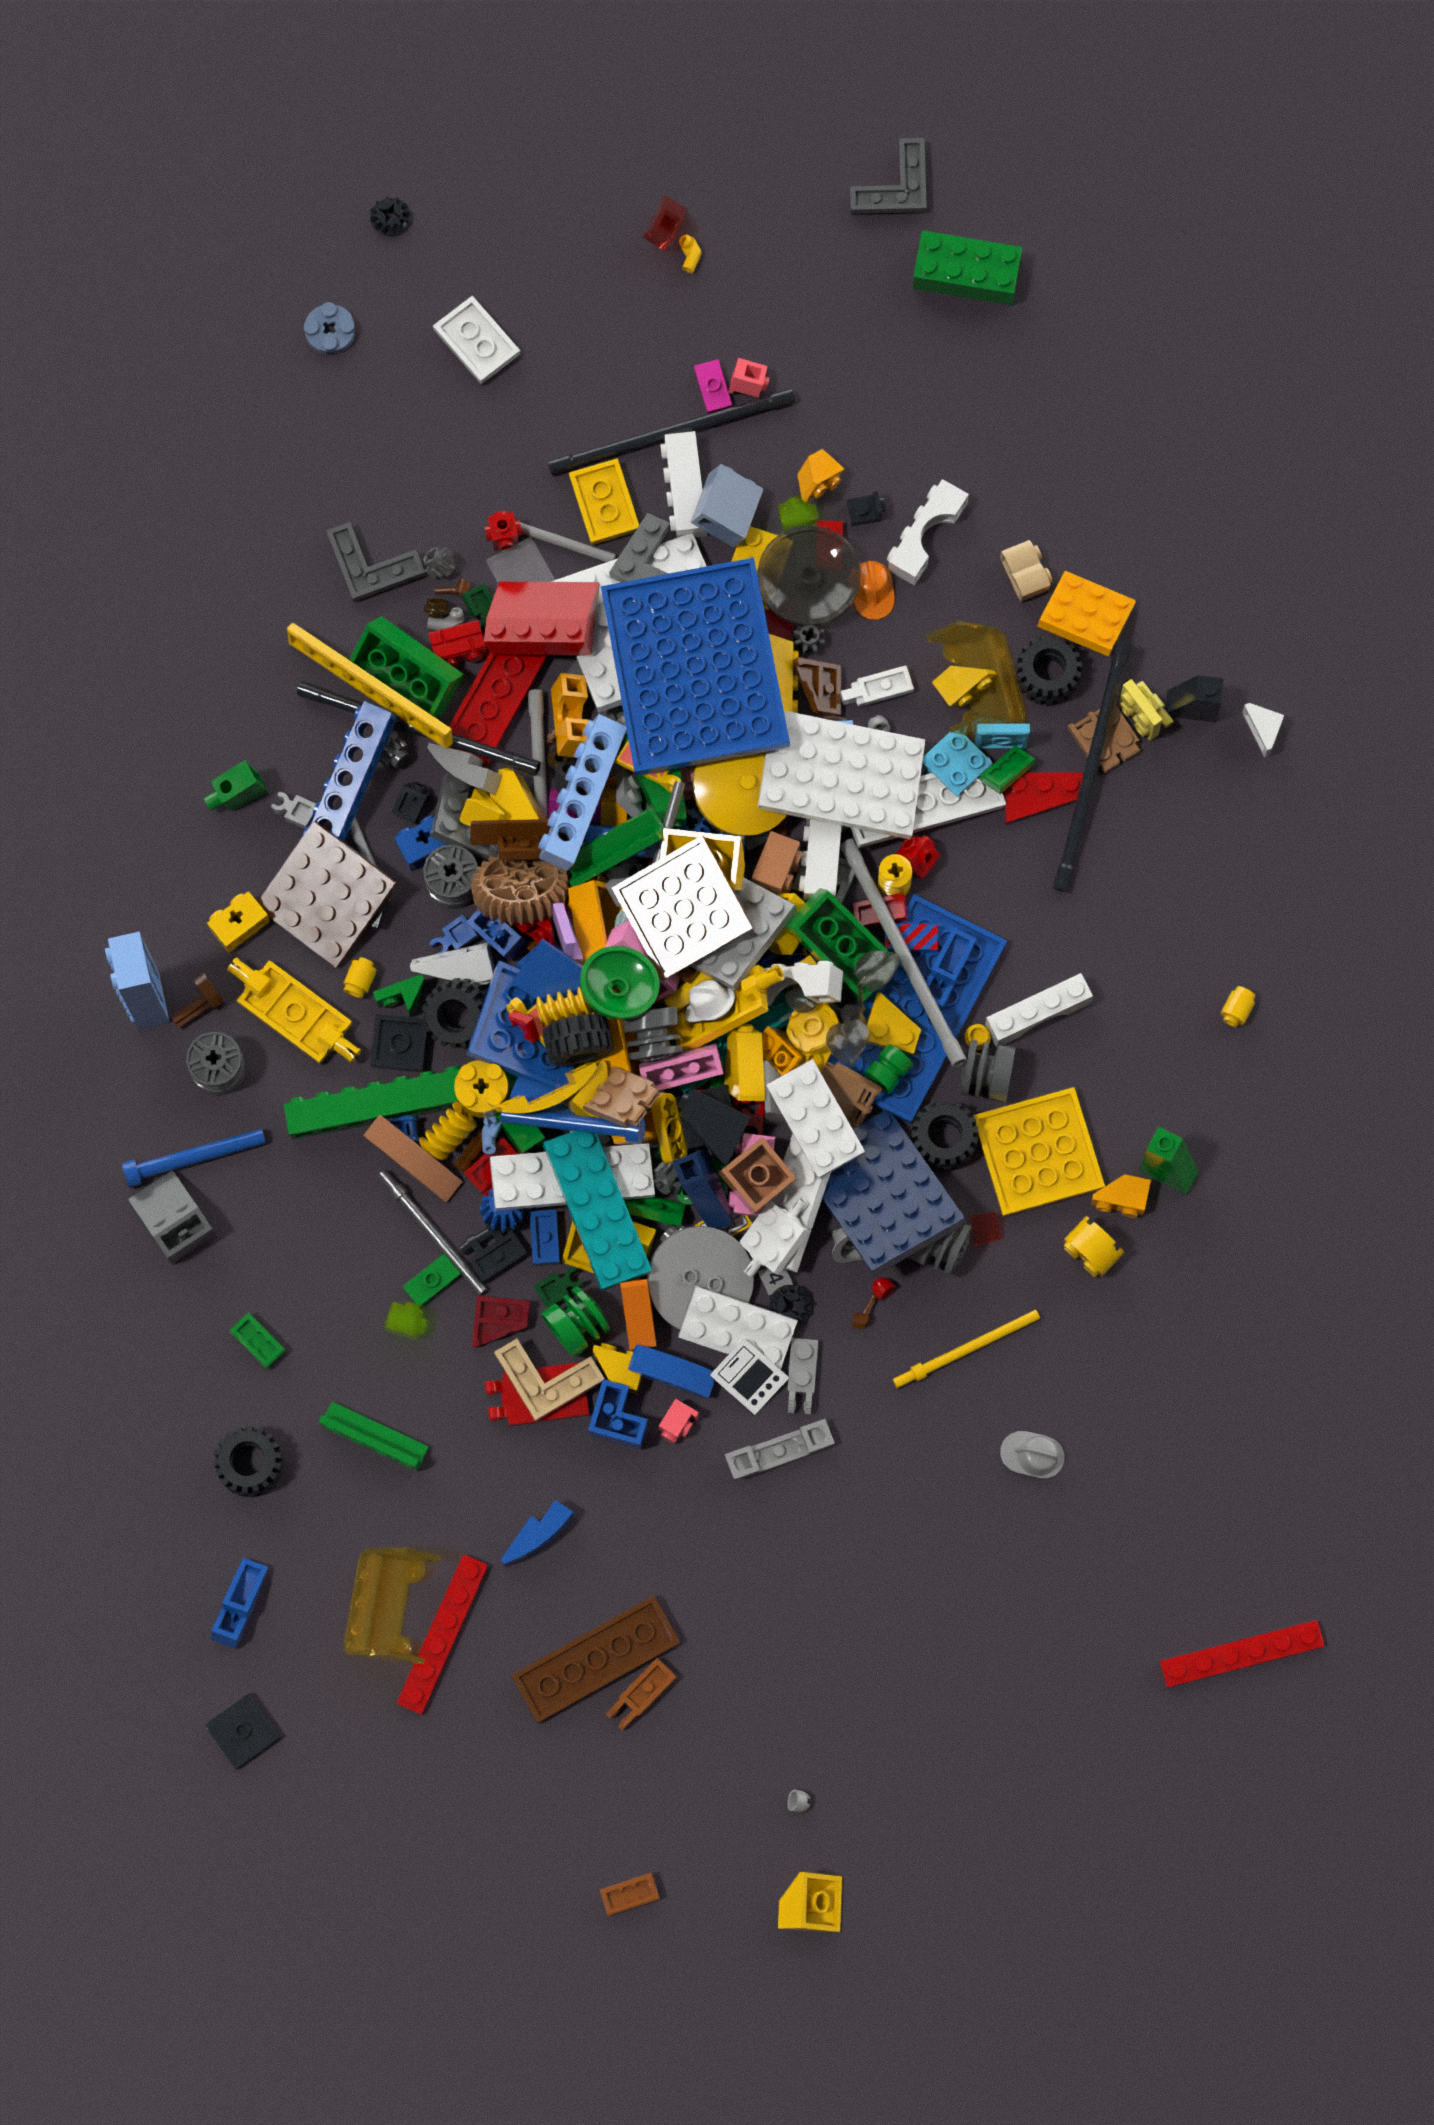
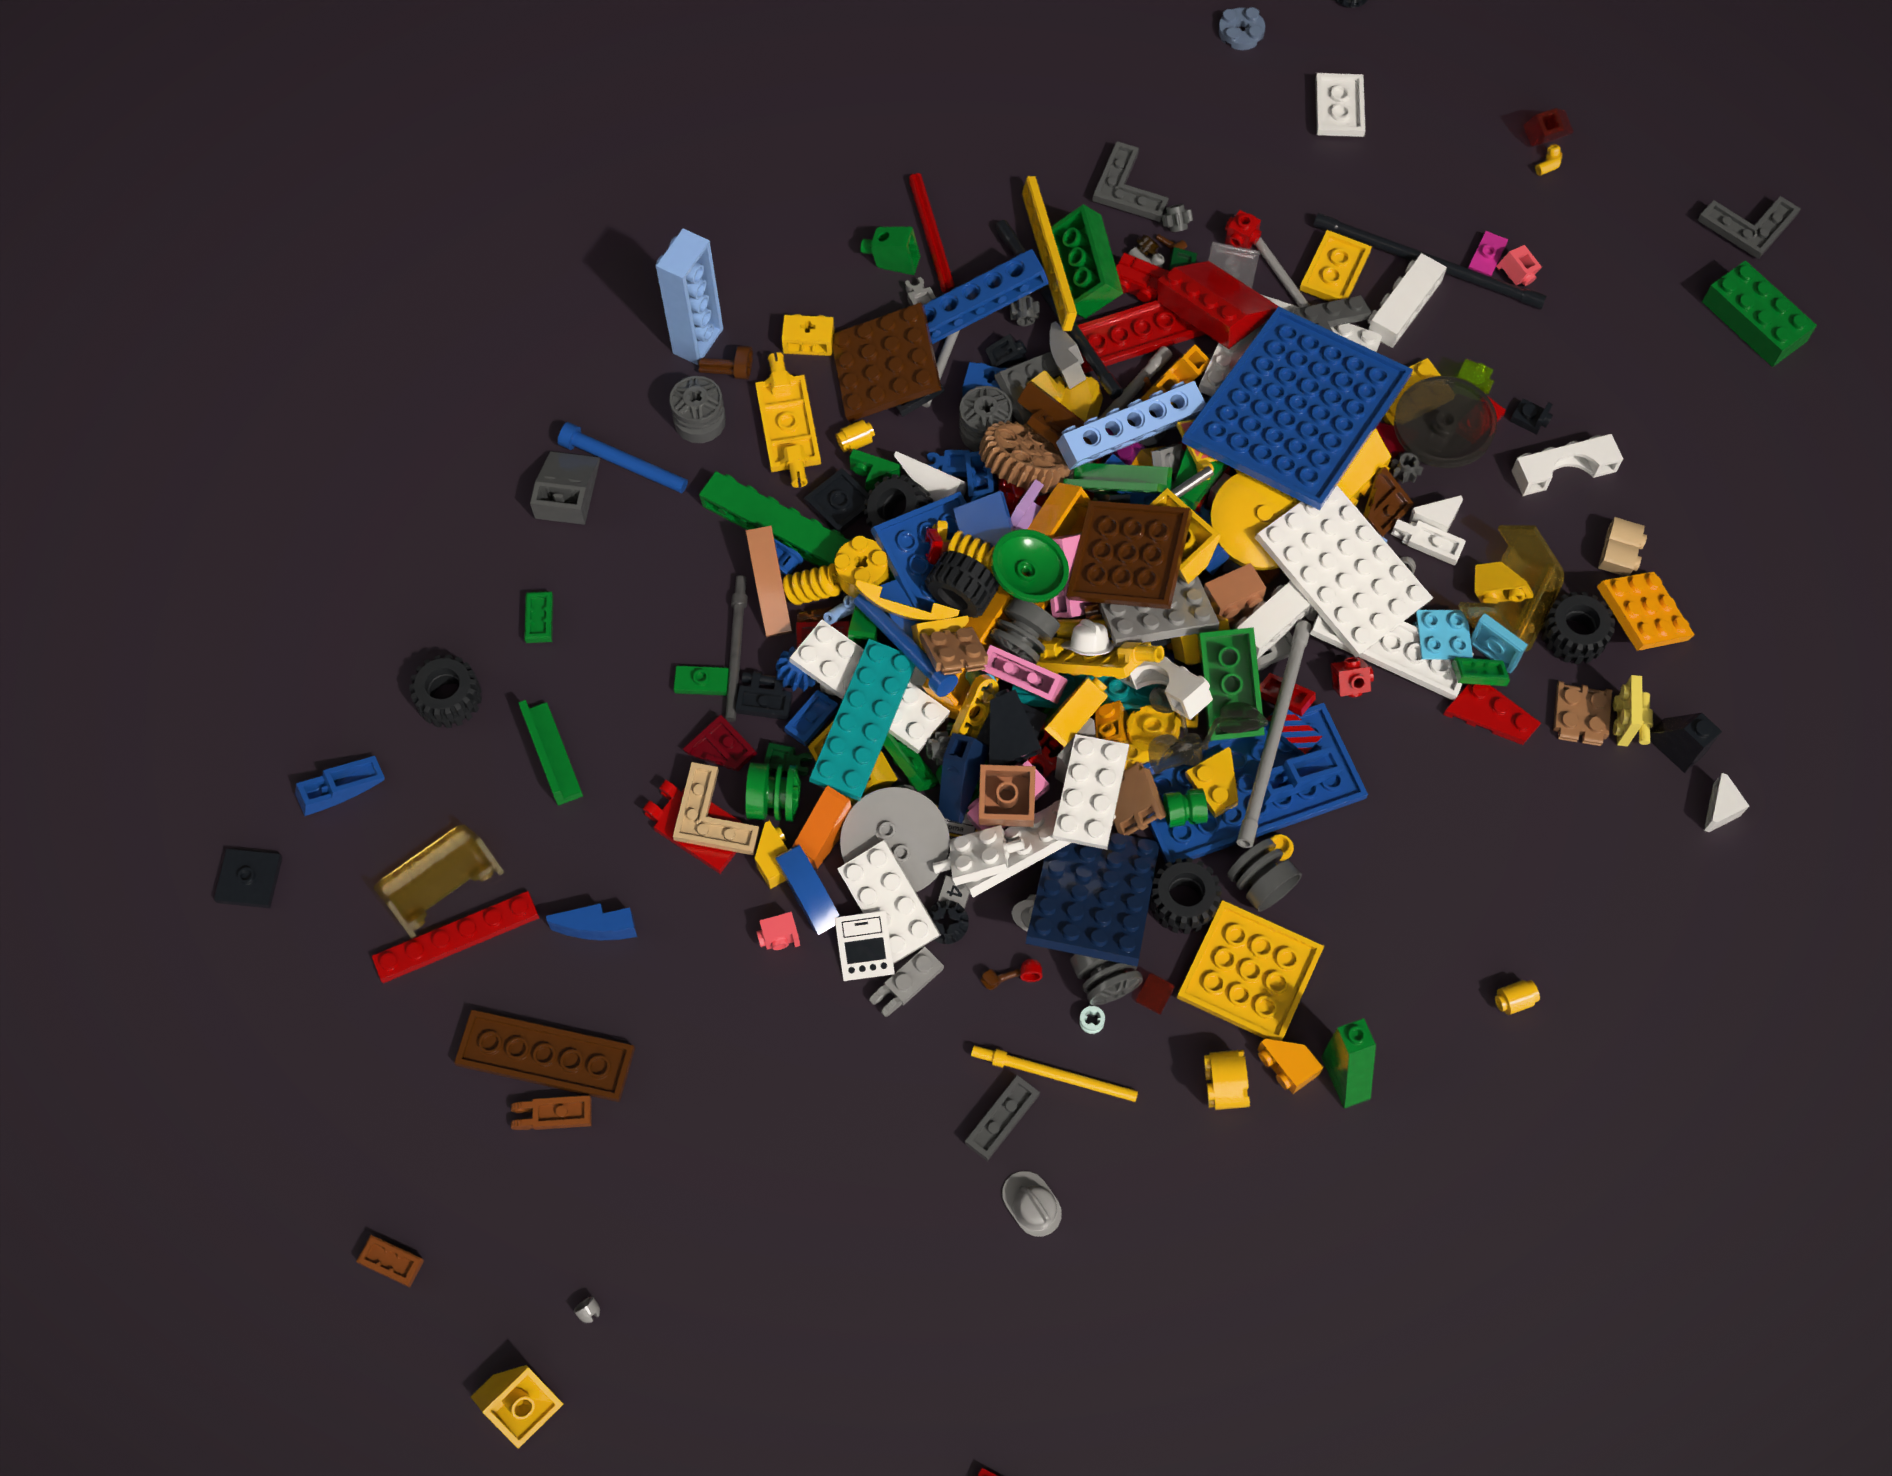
camera: 40 degrees right, 10 degrees down
(249, 743) = (931, 232): none -> red axle
(406, 1320) = (654, 690): clear neon green brick -> none
(611, 1422) = (729, 886): blue brick -> none
(727, 505) = (1425, 330): sand blue brick -> none
(779, 1450) = (833, 1023): light grey slope -> none
(818, 475) = (1516, 363): light orange slope -> none
(868, 661) = (1437, 514): none -> white slope
(875, 591) = (1487, 475): orange piece -> none
(897, 867) = (1320, 673): yellow piece -> none
(952, 1280) = (1092, 1011): none -> light aqua bush
(959, 1413) = (1002, 1118): none -> dark grey plate
(1052, 1002) = (1375, 872): white arch -> none
(1065, 869) = (1463, 781): black piece -> none

